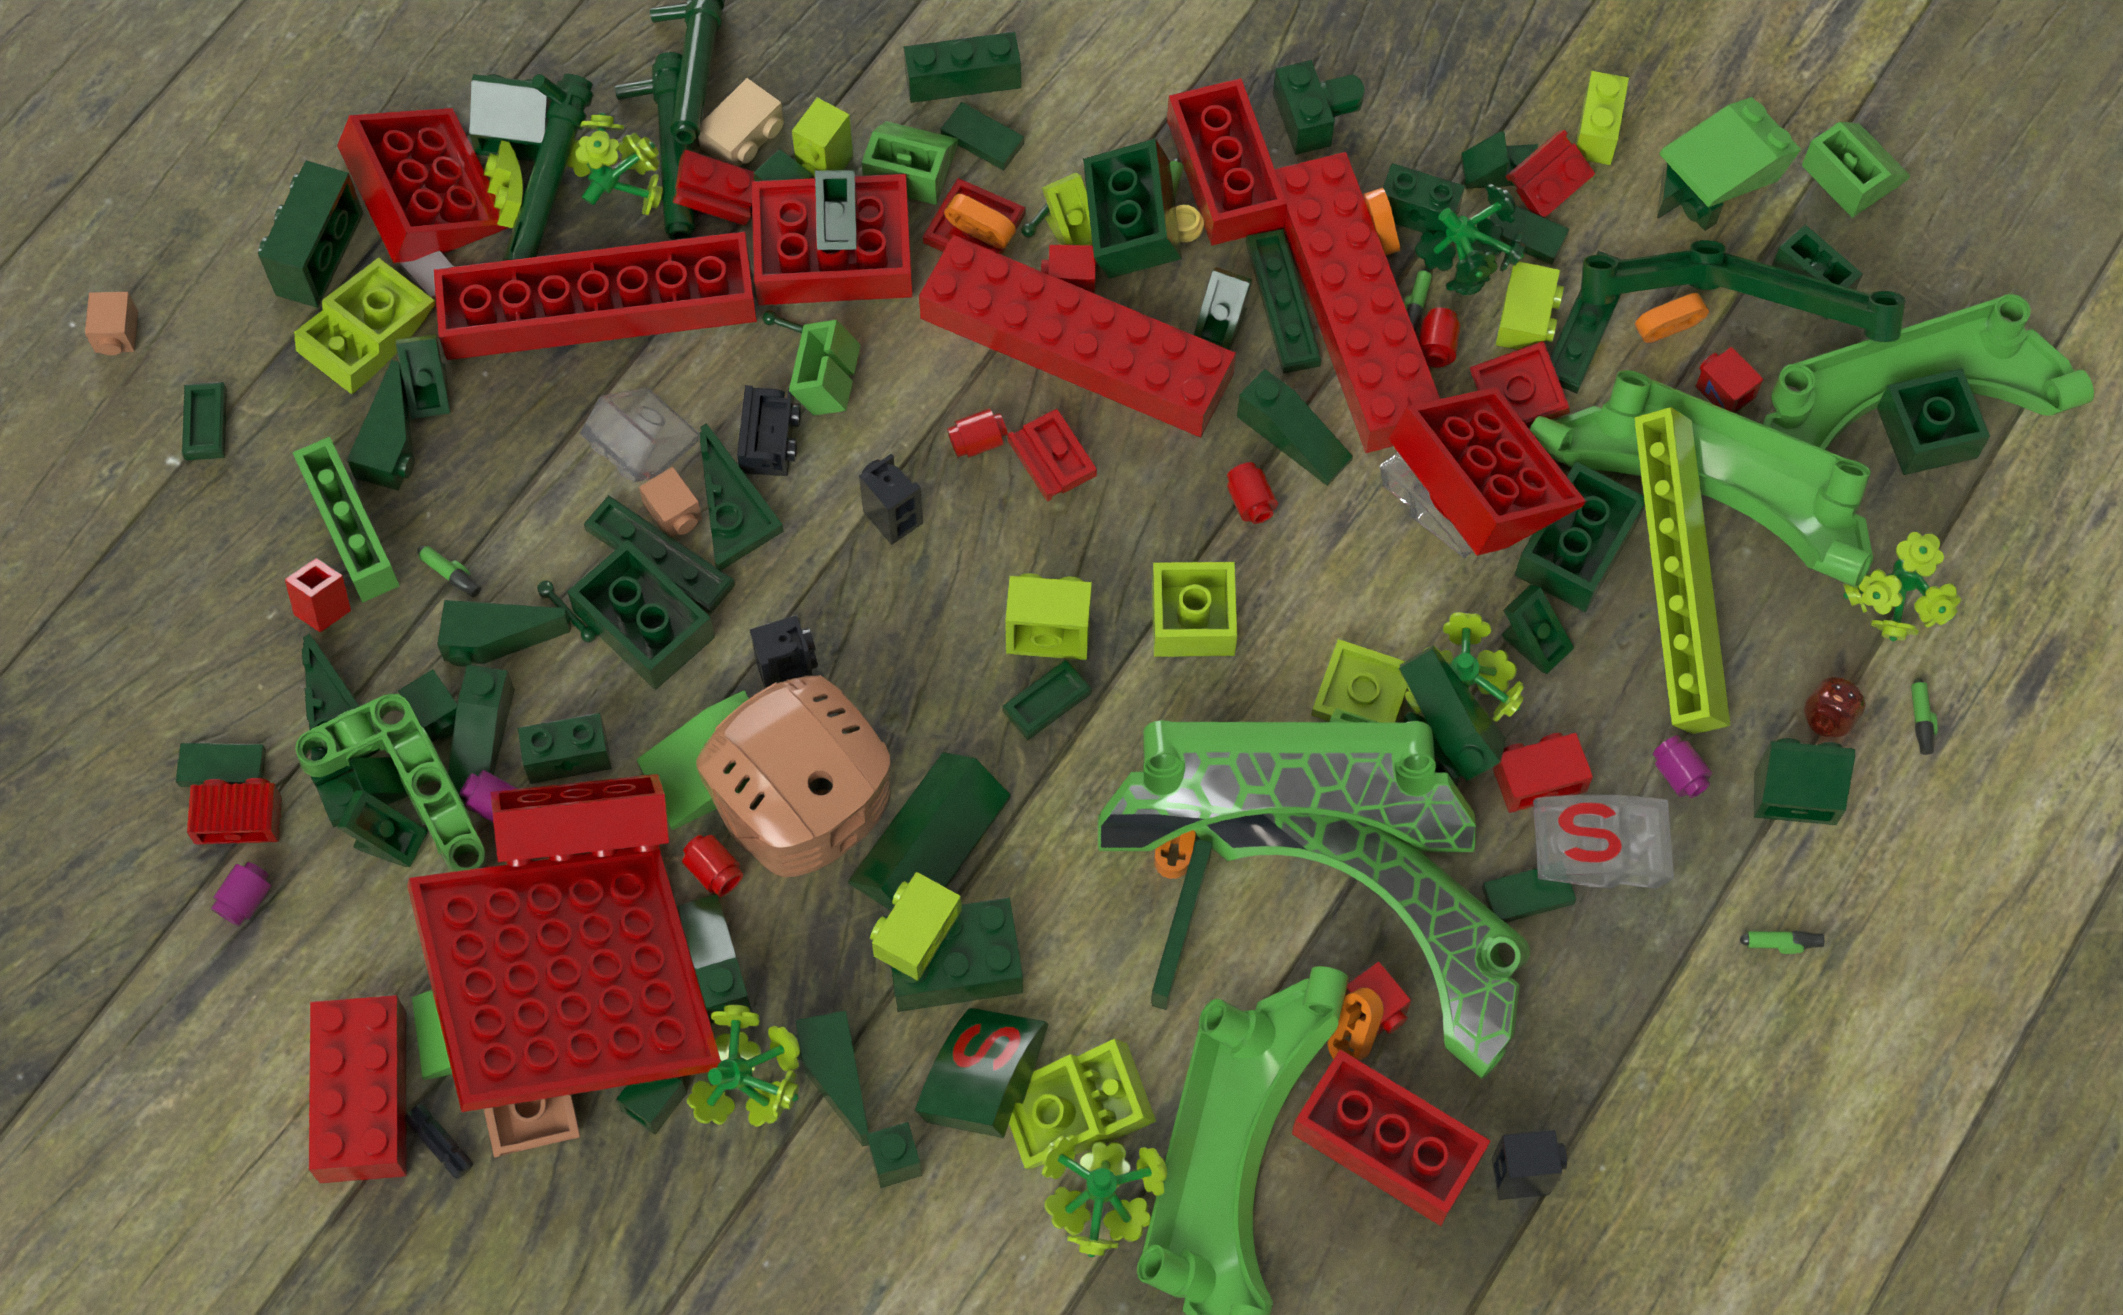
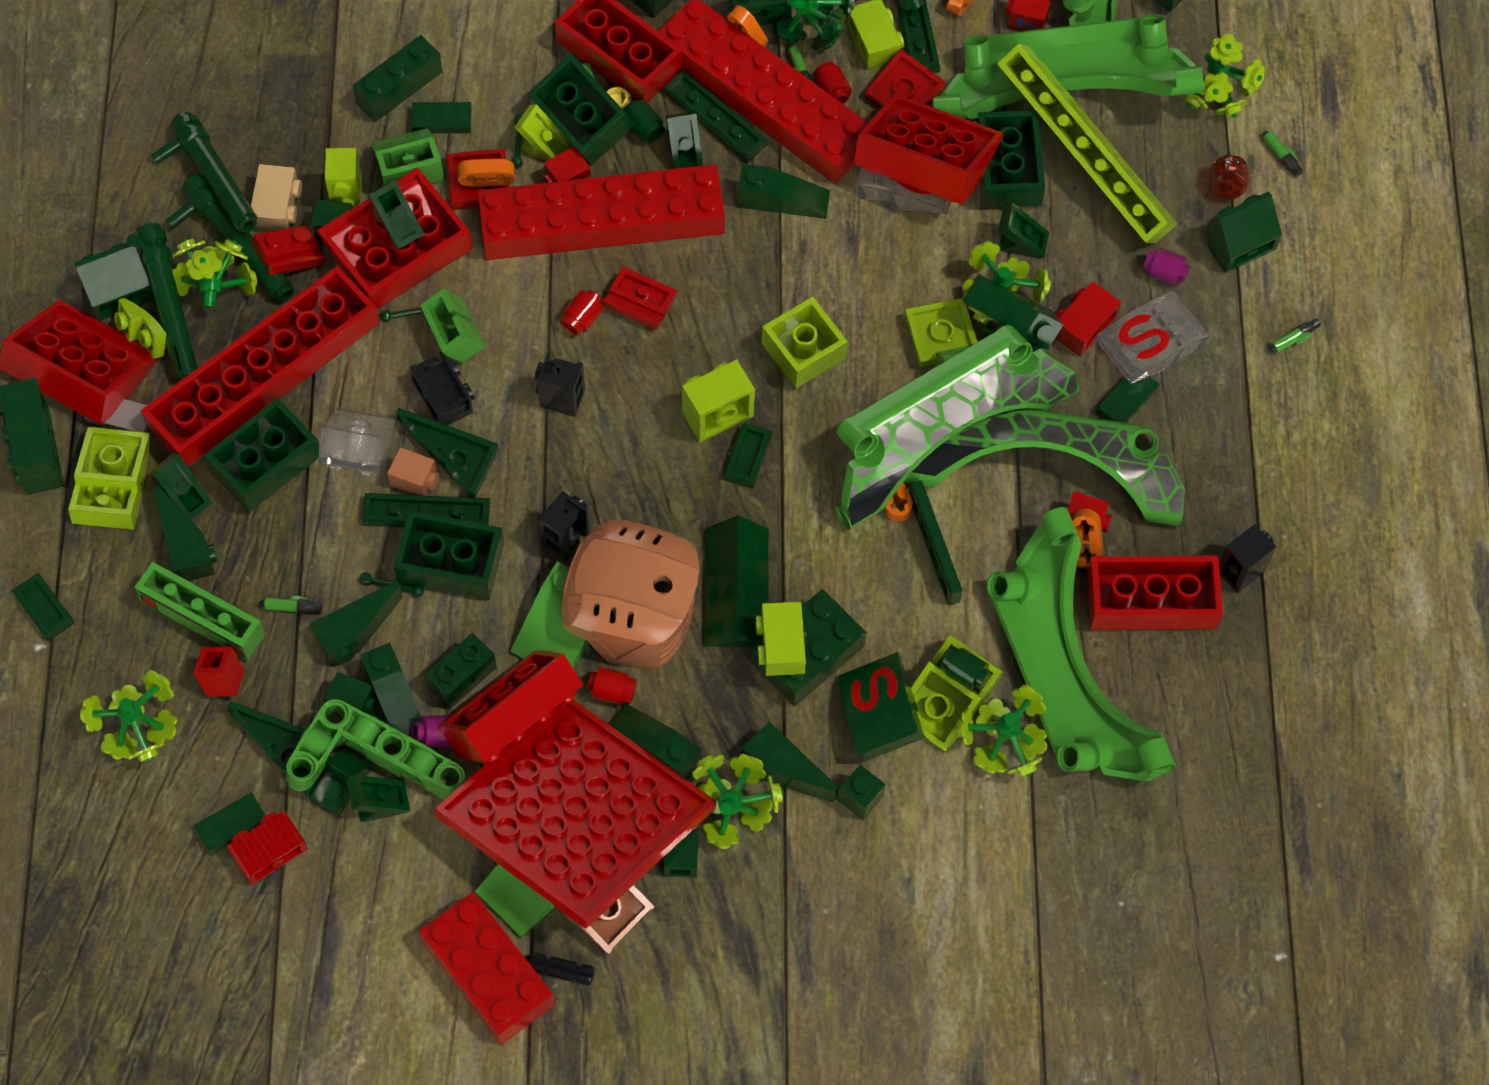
camera: 35 degrees left, 0 degrees up
(194, 582) = (130, 709): none -> lime plant
(241, 893) = (311, 895): magenta brick -> none
(528, 391) = (263, 455): none -> dark green brick
(1103, 1088) = (965, 668): none -> dark green brick
(1196, 261) = (648, 124): none -> dark green brick
(1251, 493) = (785, 249): red brick -> none

